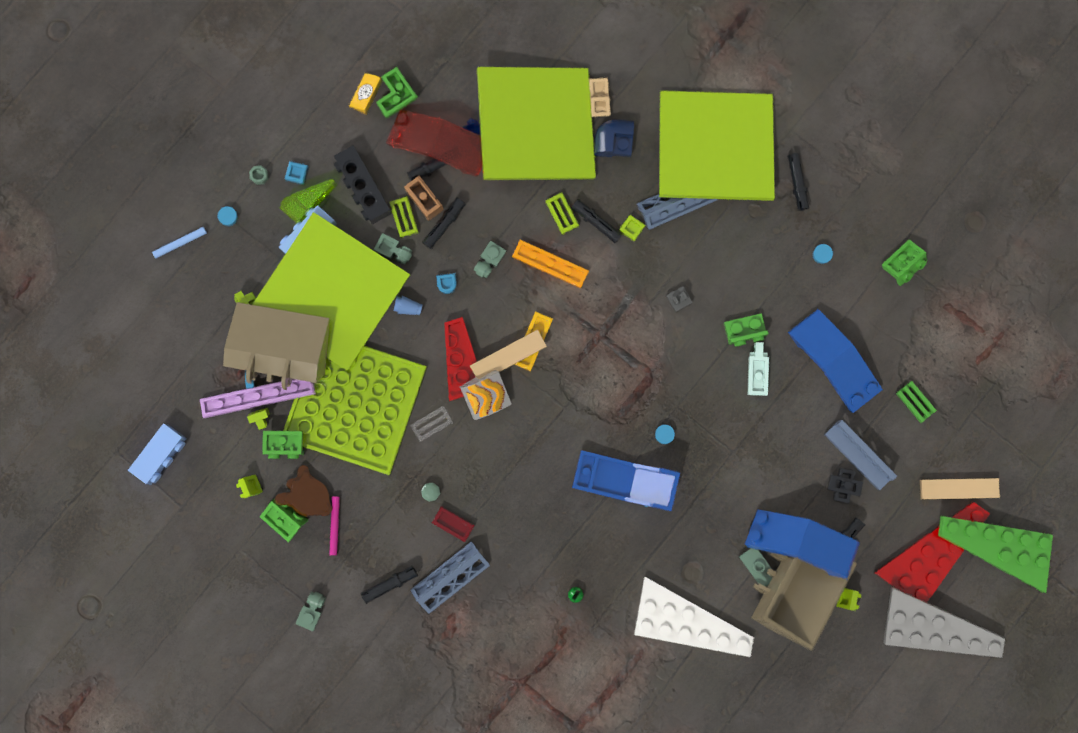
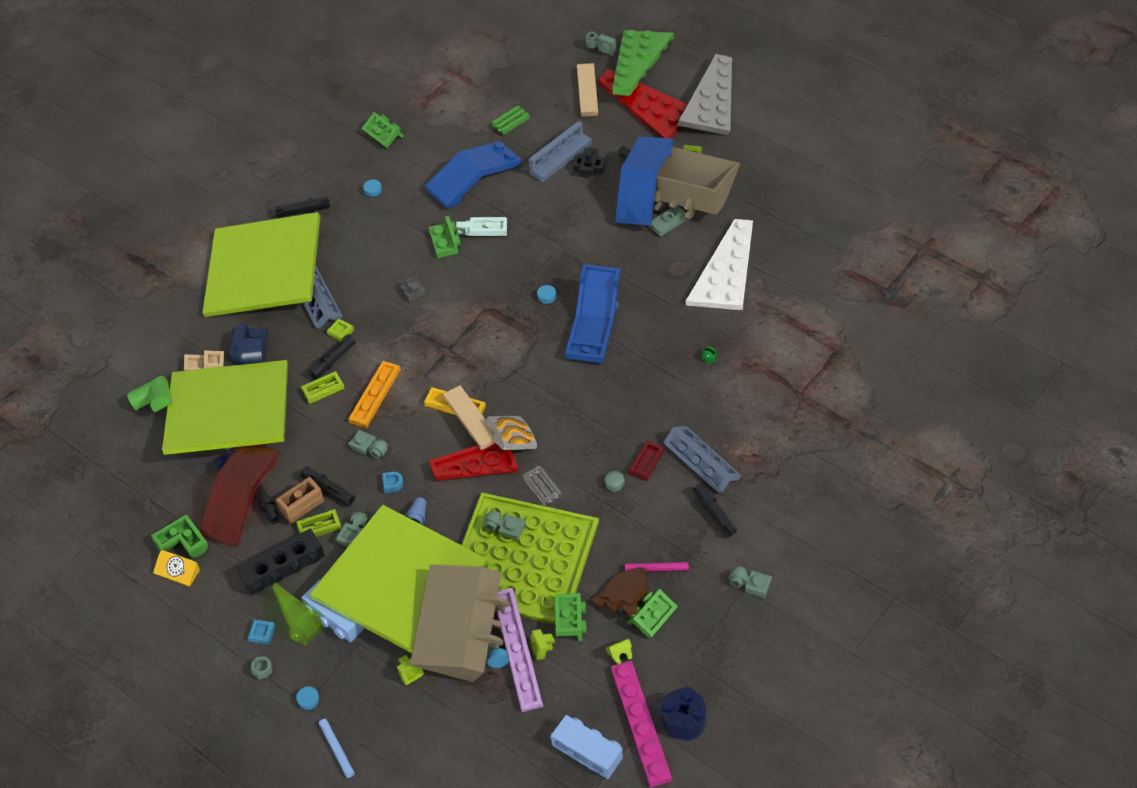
camera: 90 degrees left, 30 degrees down
(169, 534) = (684, 714): none -> clear blue brick
(179, 501) = (641, 724): none -> dark pink plate
(381, 392) = (510, 527): none -> sand green plate
(558, 55) = (153, 392): none -> bright green brick
(1029, 511) = (604, 43): none -> sand green plate

